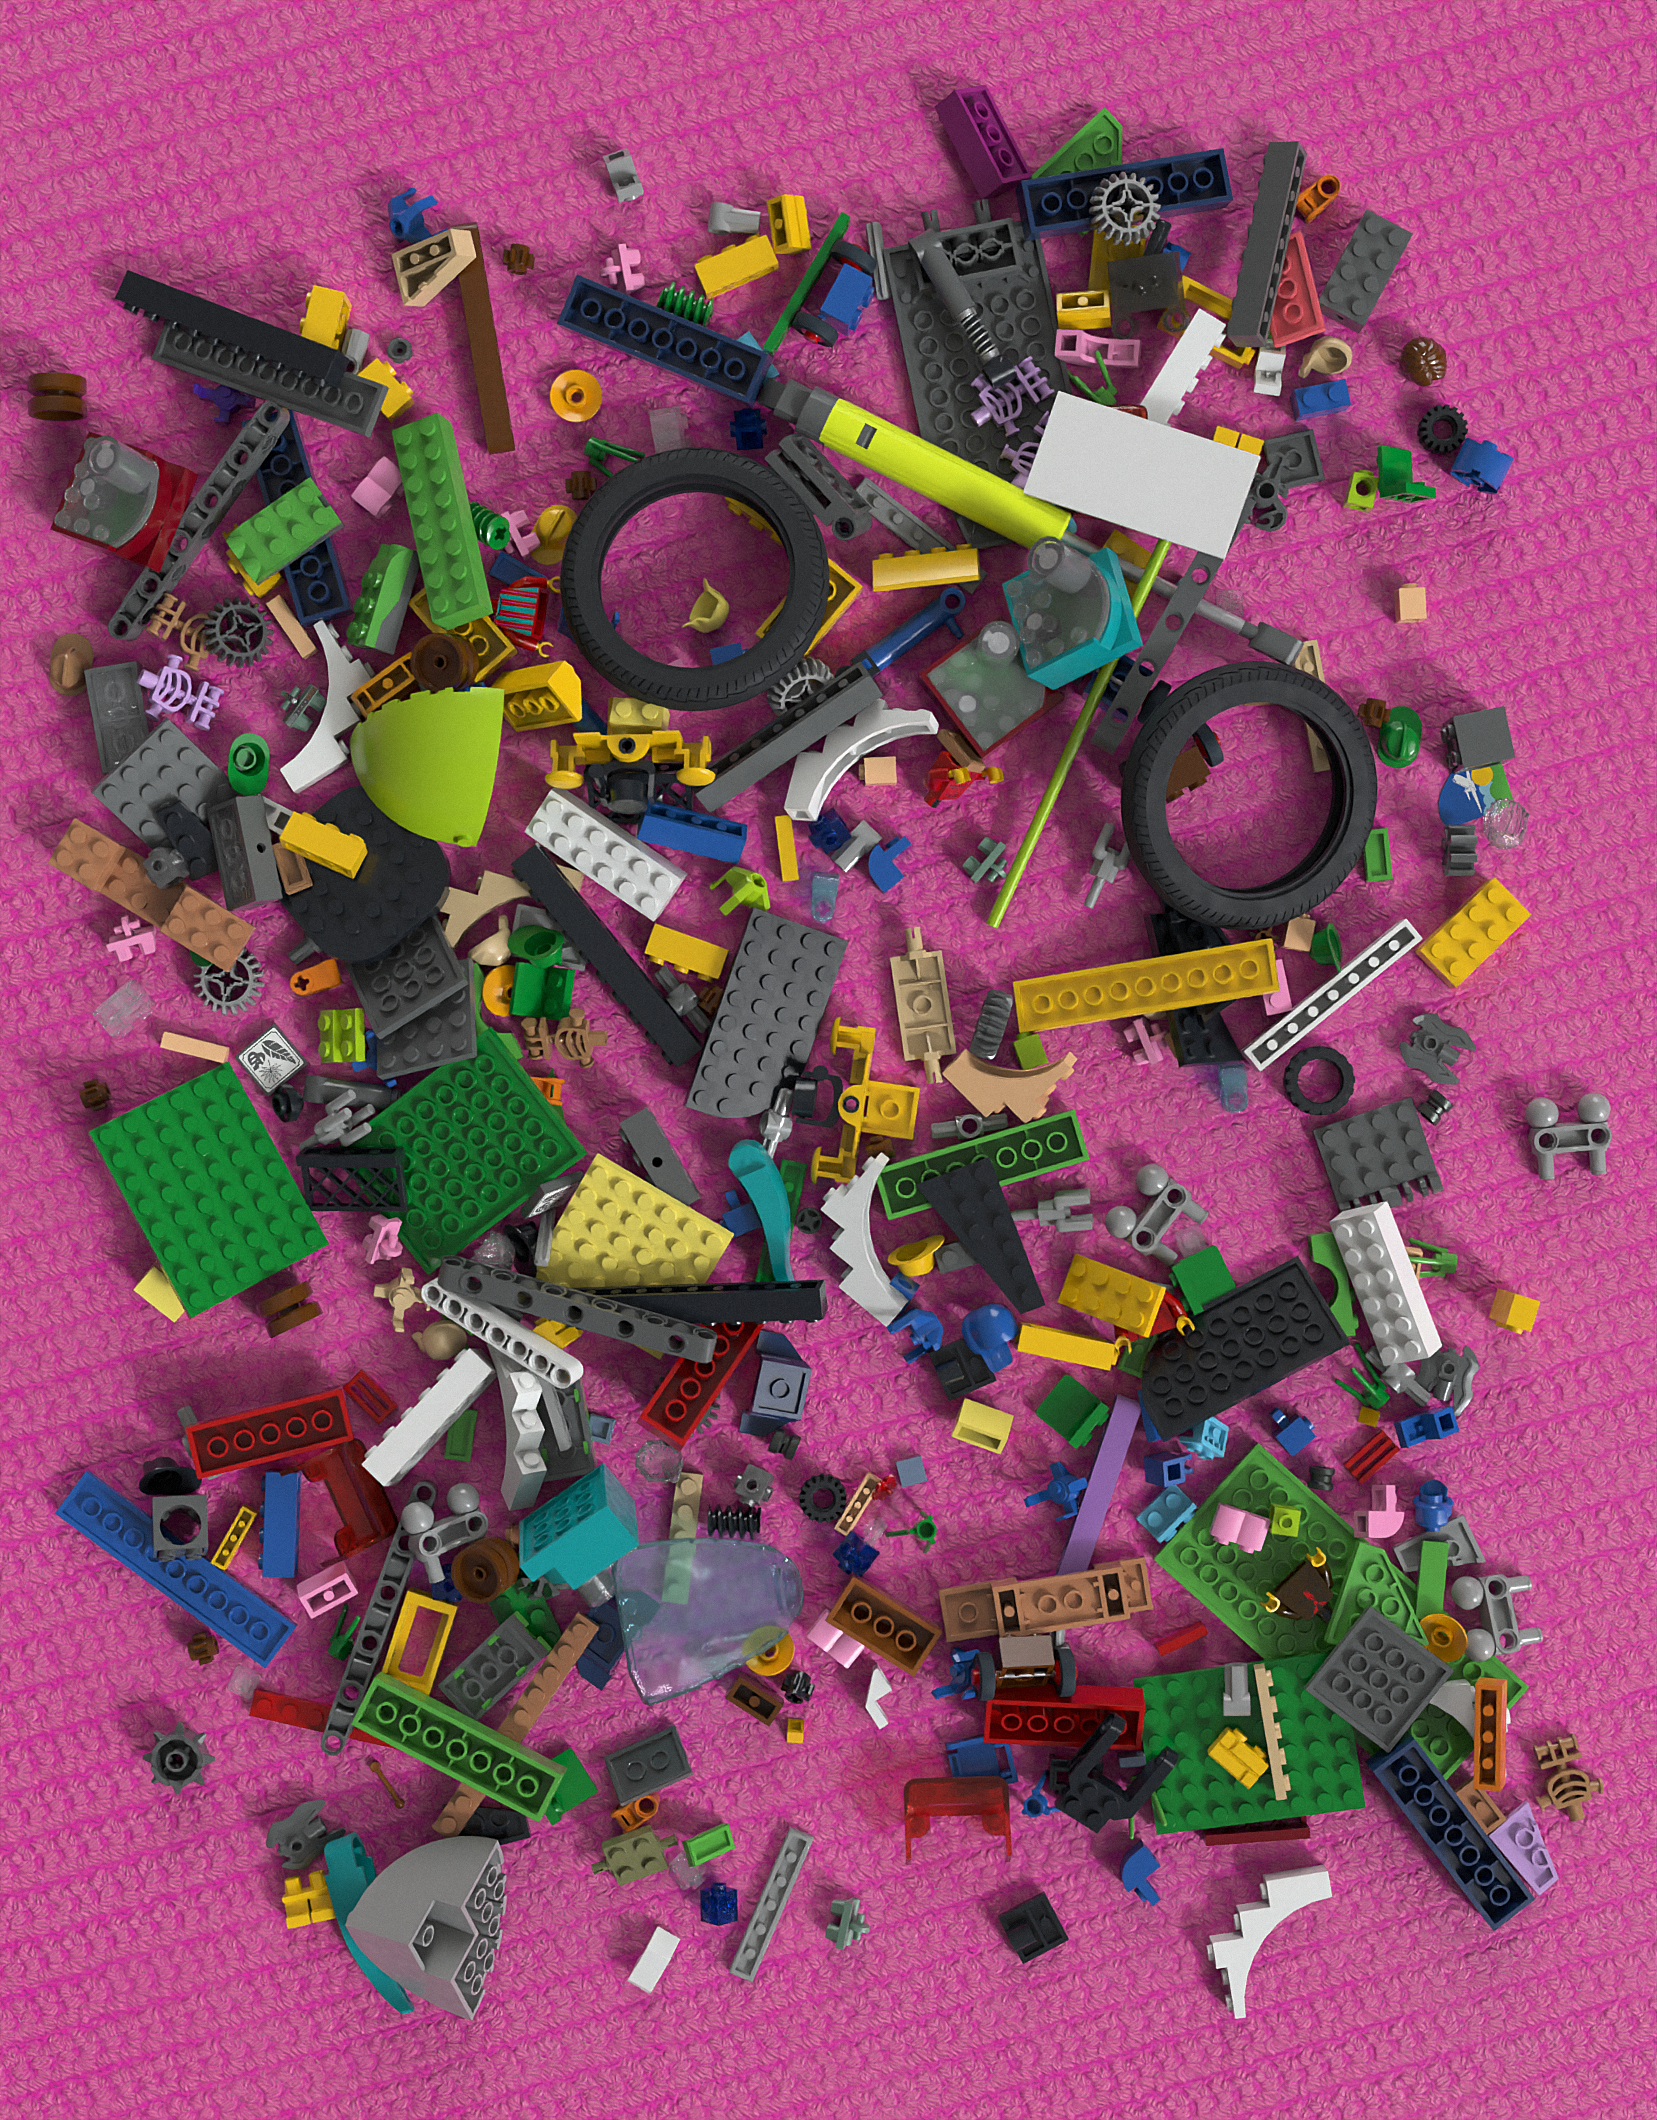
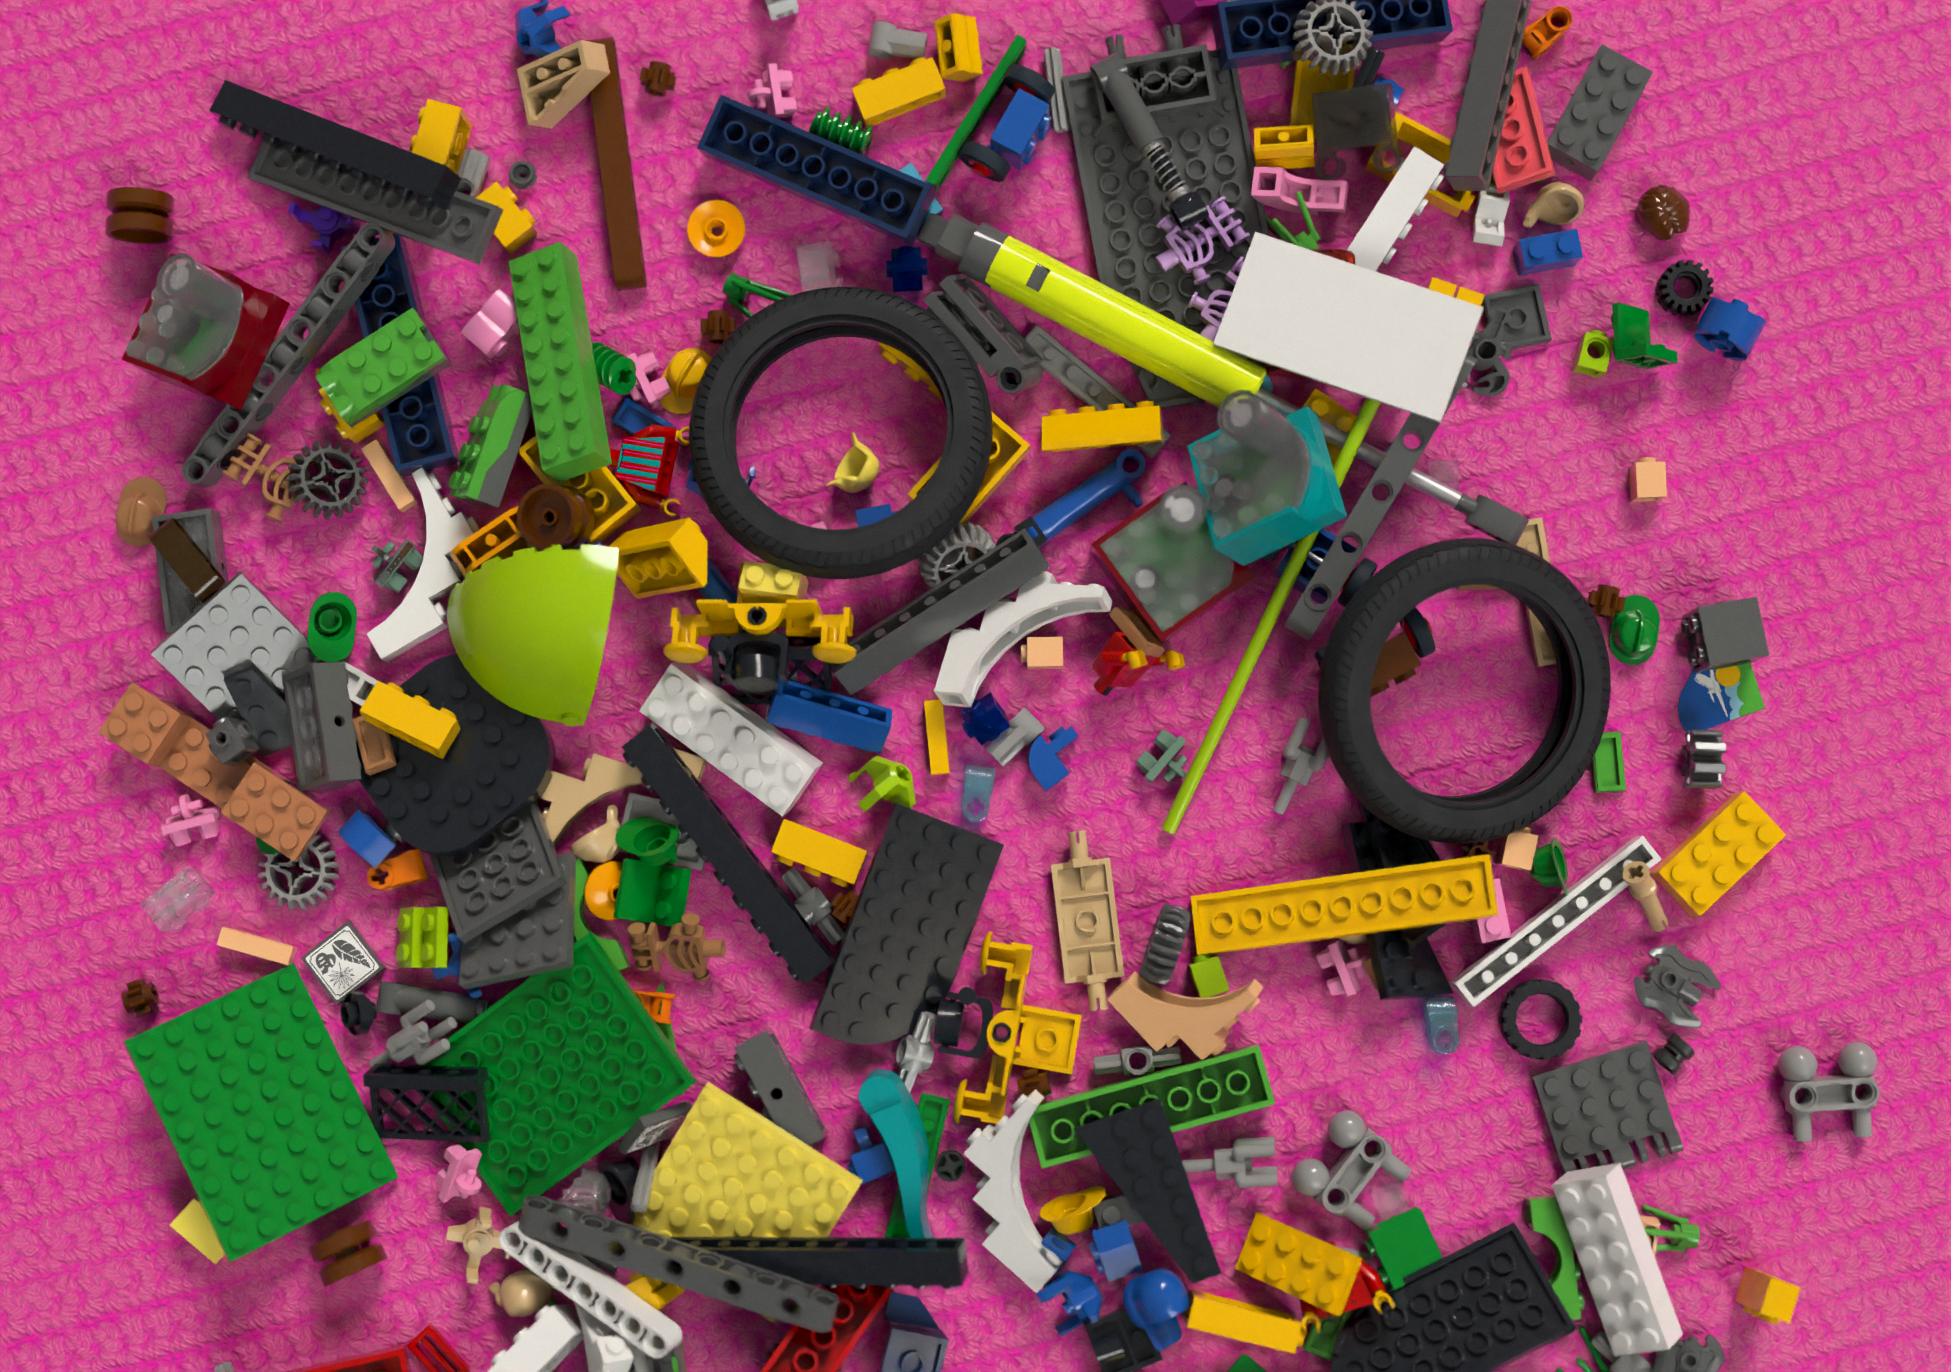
camera: 10 degrees right, 5 degrees down
(118, 707) = (187, 559): none -> dark brown beam
(161, 685) = (232, 534): lavender piece -> none
(289, 950) = (367, 837): none -> blue brick
(953, 1289) = (1115, 1251): none -> blue brick
(1406, 965) = (1644, 889): none -> tan pin
(1505, 823) = (1756, 730): clear hair -> none

